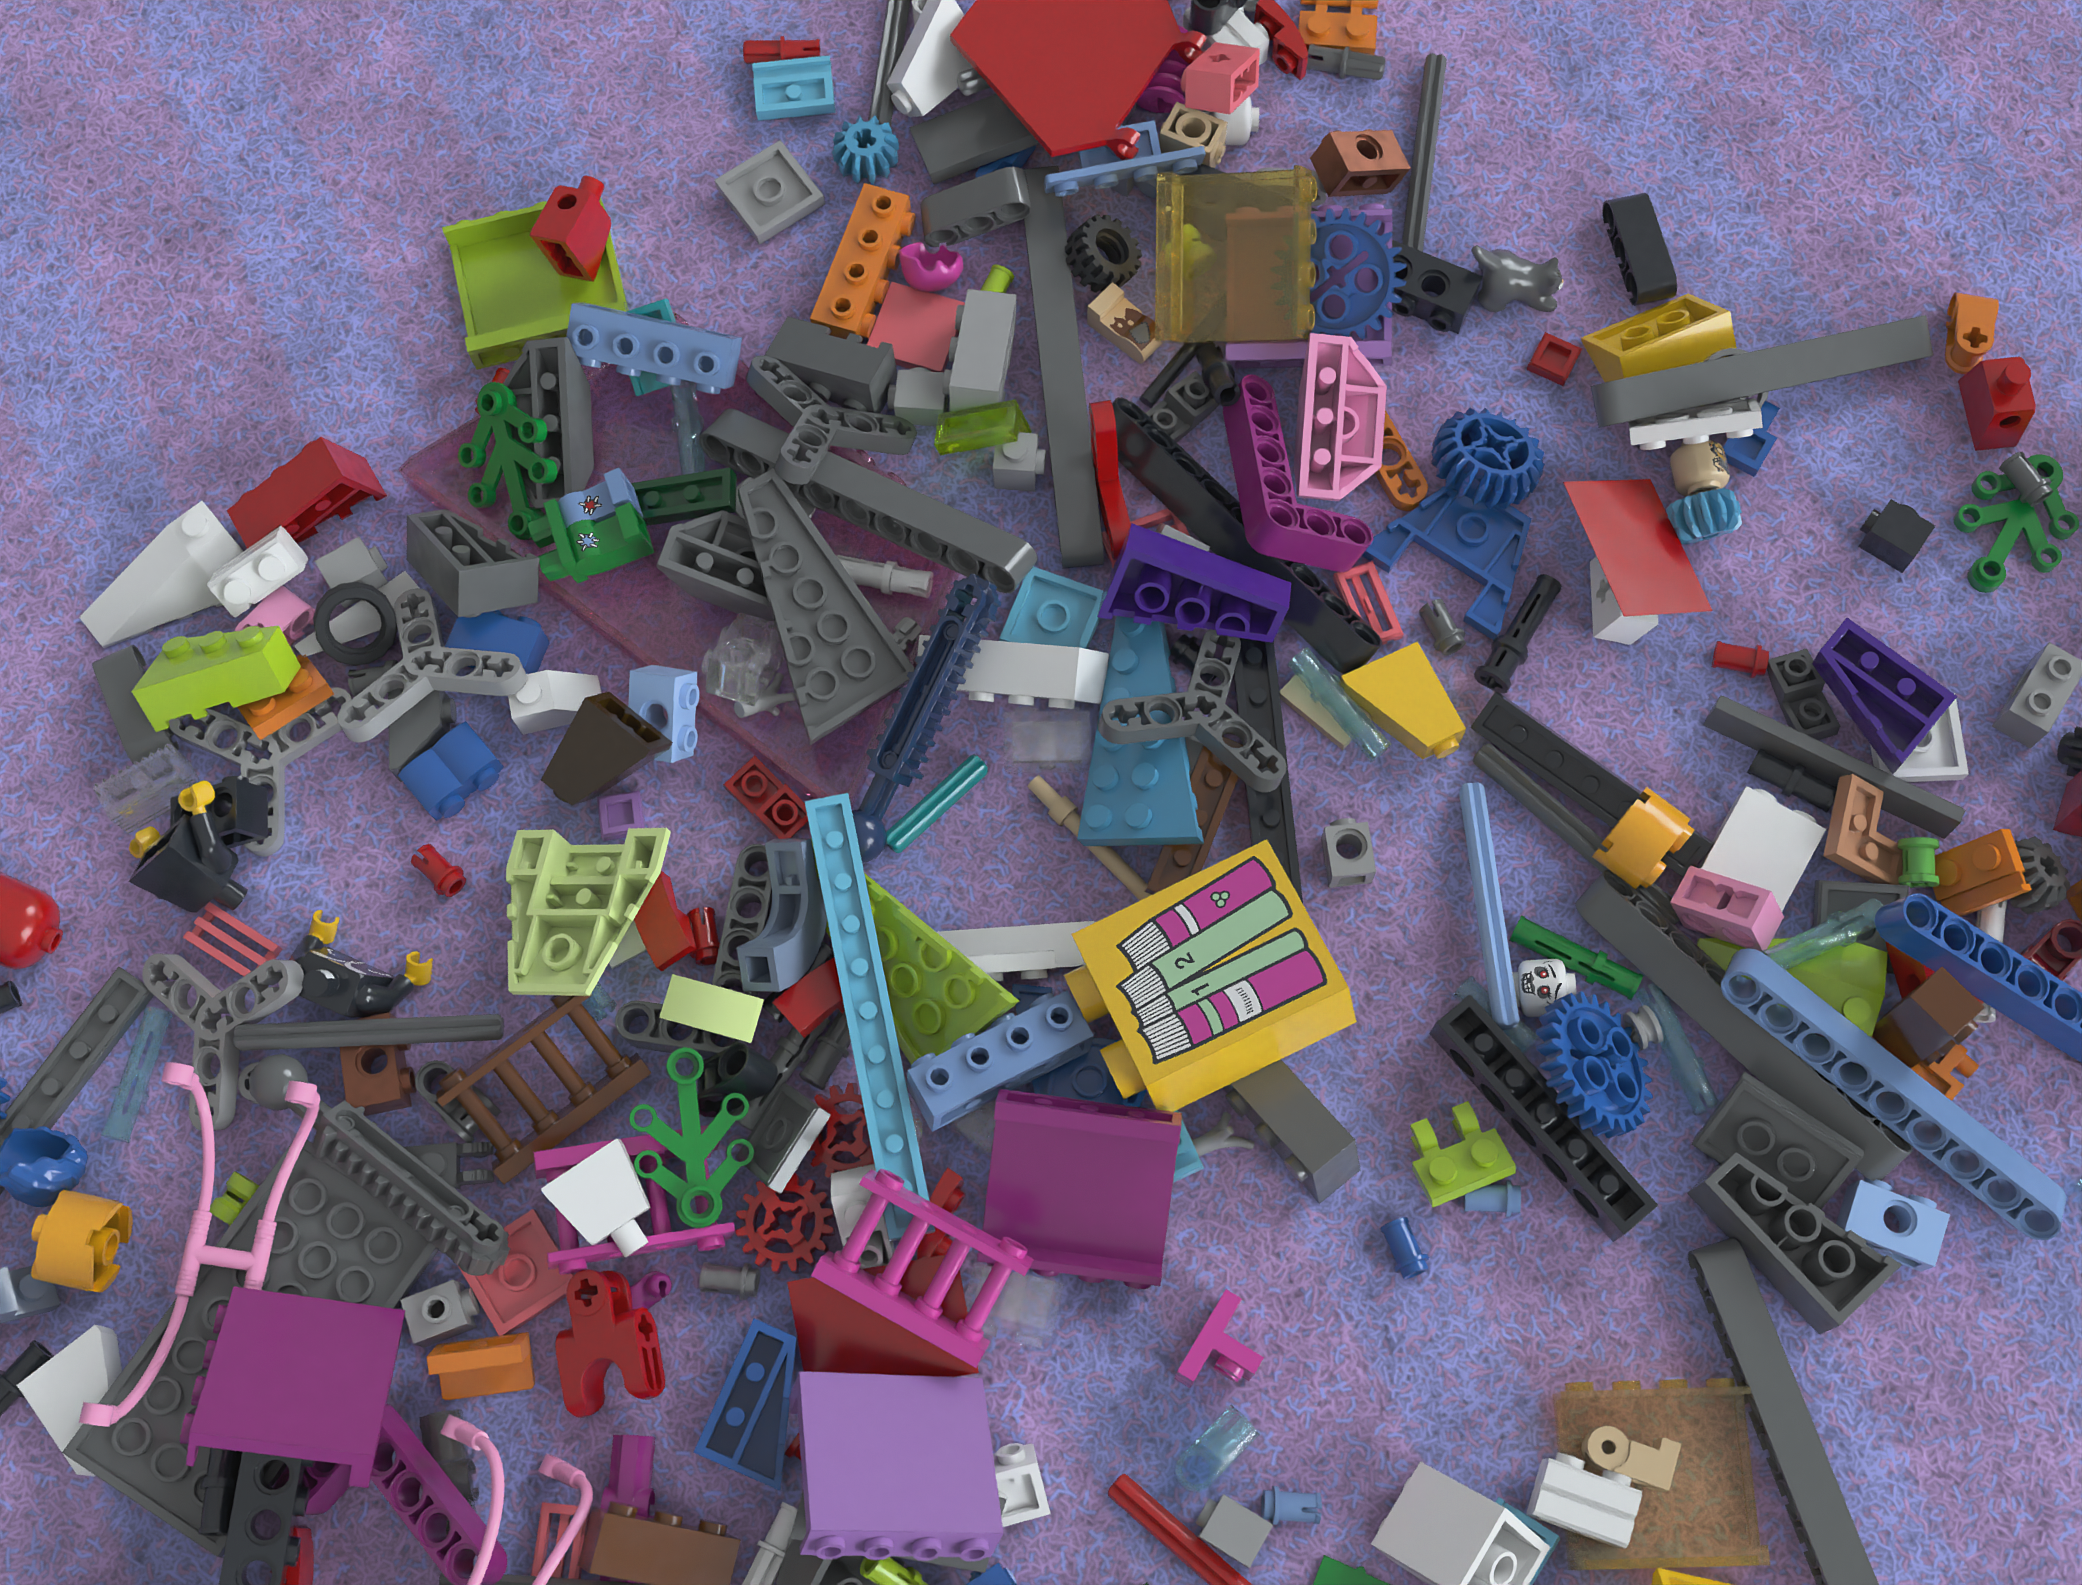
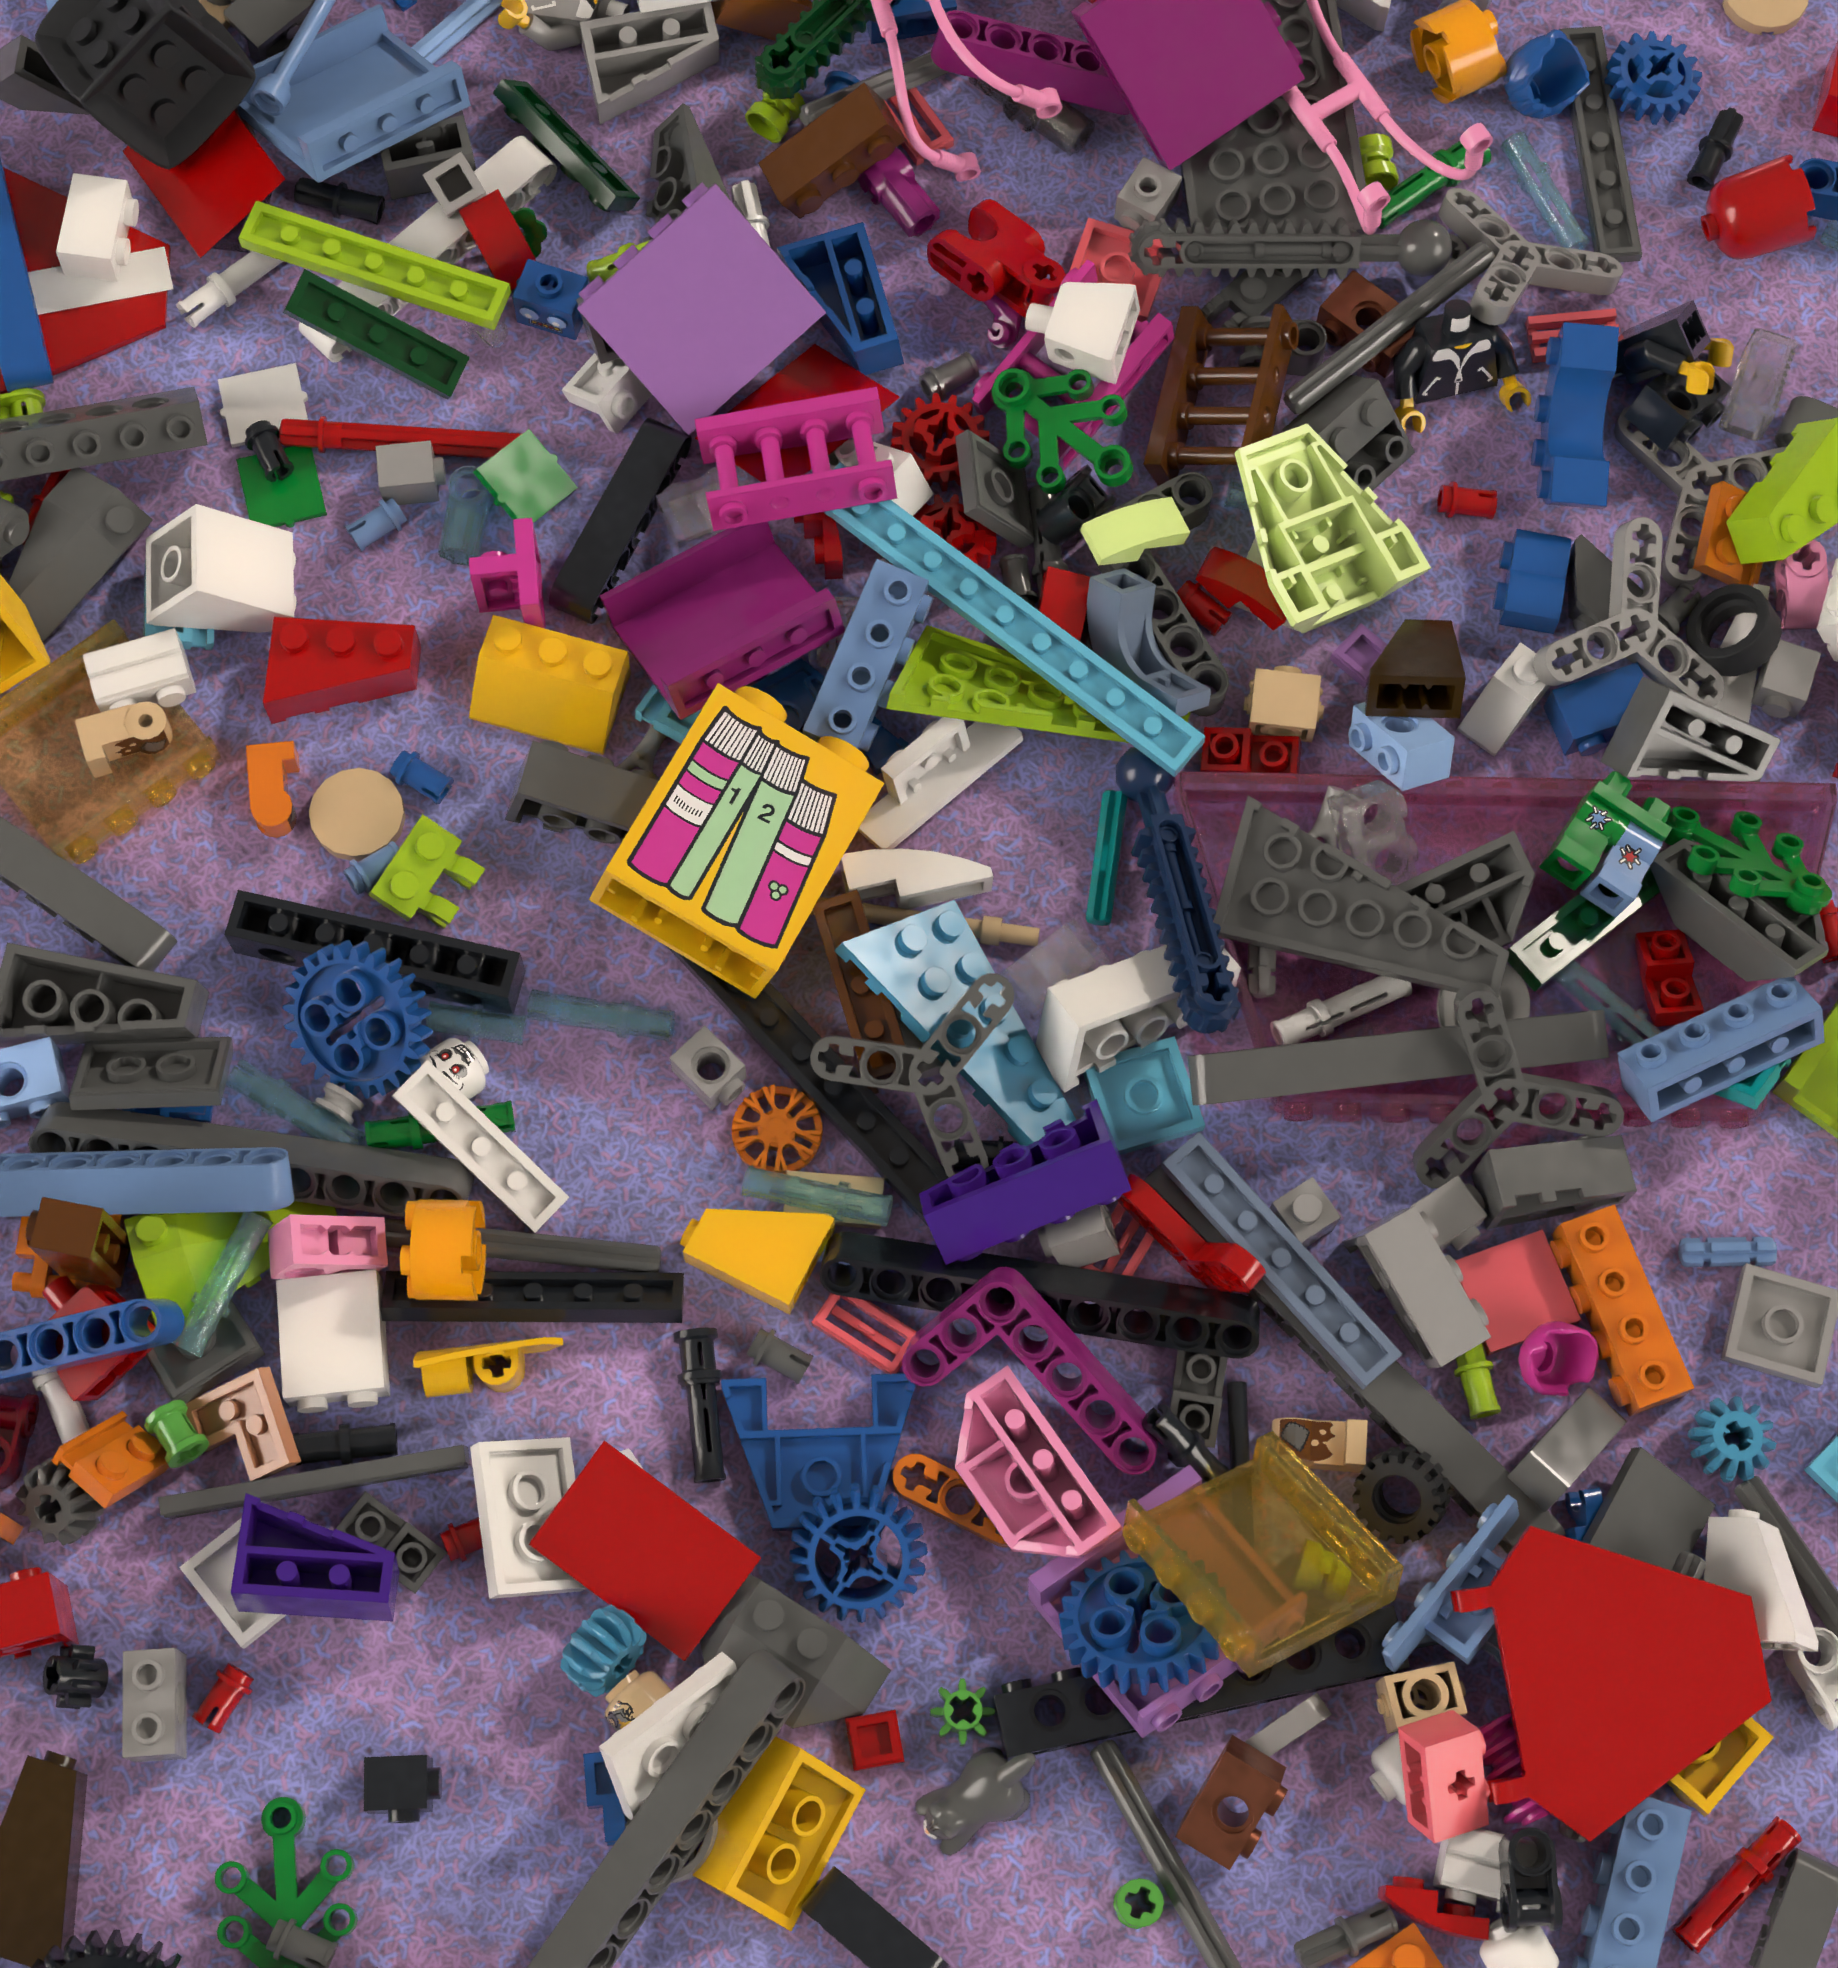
camera: 135 degrees right, 0 degrees up
(187, 1155) = (1425, 183): none -> green pin
(319, 856) = (1574, 415): none -> blue brick
(472, 980) = (1360, 429): none -> dark grey slope
(483, 1366) = (1084, 189): orange panel -> none
(633, 437) = (1667, 976): none -> red slope
(714, 813) = (1284, 703): none -> tan head
(759, 257) = (1727, 1251): none -> medium blue axle
(979, 427) = (1357, 1205): clear neon green panel -> none
(1061, 432) = (1288, 1265): none -> sand blue plate
(1083, 878) = (913, 876): none -> white slope
(1089, 1351) = (618, 519): none -> black beam
(1143, 1444) = (525, 478): none -> piece
(1251, 1247) = (549, 684): none -> yellow slope
(1328, 782) = (777, 1129): none -> orange wheel
(1385, 941) = (613, 1017): none -> clear light blue pin
(1412, 1393) = (336, 663): none -> red wedge
(1460, 153) = (1153, 1897): none -> bright green bush
(1476, 1257) = (356, 813): none -> tan tile
(1487, 330) = (961, 1697): none -> bright green gear
(1489, 906) = (550, 1111): light blue axle -> none
(1541, 1314) = (269, 786): none -> orange leg
(1561, 910) = (480, 1146): none -> white plate
(1573, 445) = (836, 1670): none -> dark grey wedge
(1655, 757) = (452, 1369): none -> yellow panel
(1695, 648) = (515, 1494): none -> white plate
(1973, 677) = (225, 1695): none -> red pin

